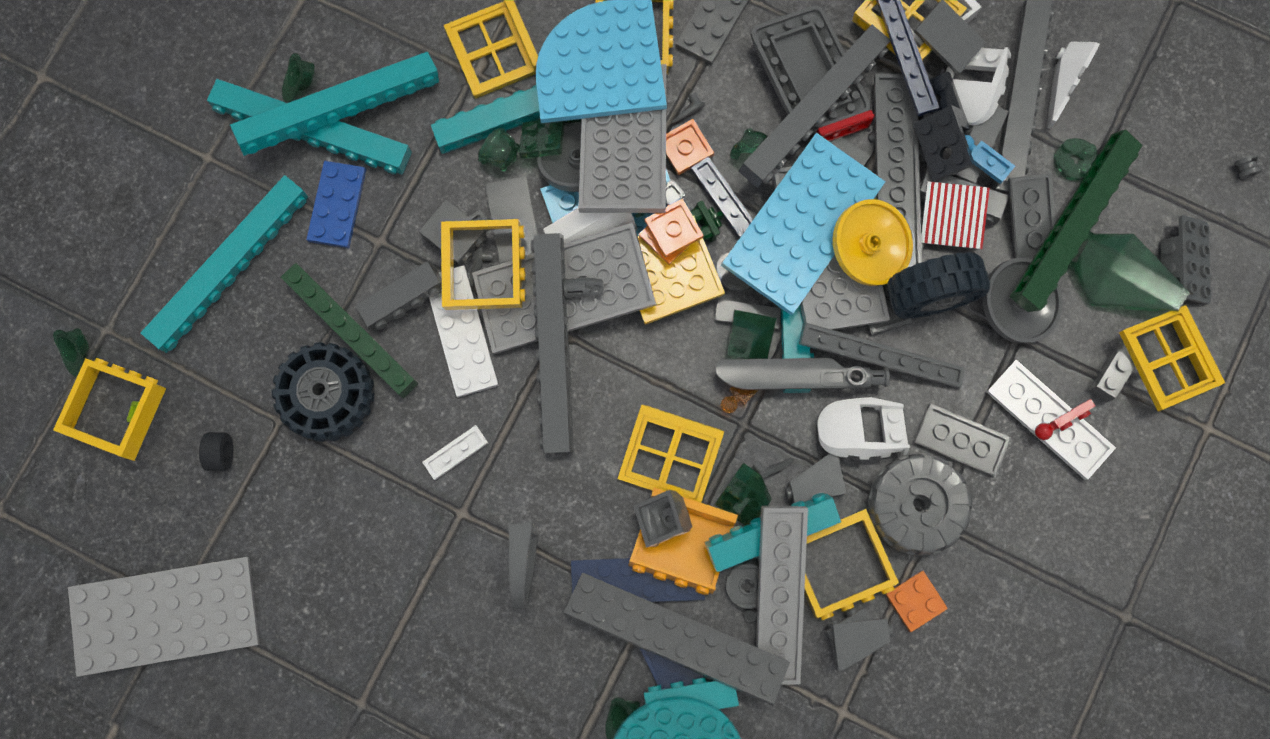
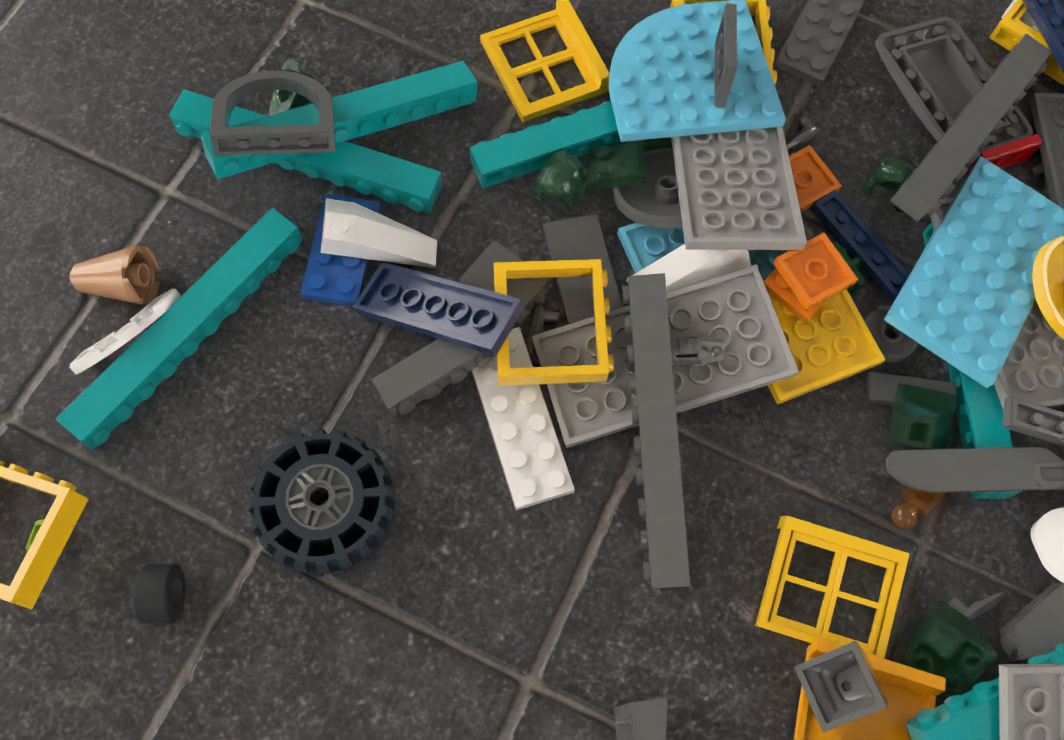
camera: 10 degrees left, 10 degrees down
(177, 227) = (119, 275): none -> medium nougat cone
(194, 262) = (115, 340): none -> white tile
(284, 129) = (271, 139): none -> dark grey window
(349, 331) = (362, 416): dark green brick -> none
(352, 194) = (369, 235): none -> white wedge
(402, 254) = (440, 308): none -> dark blue plate
(455, 452) = (516, 590): white tile -> none
(618, 56) = (725, 55): none -> dark grey tile

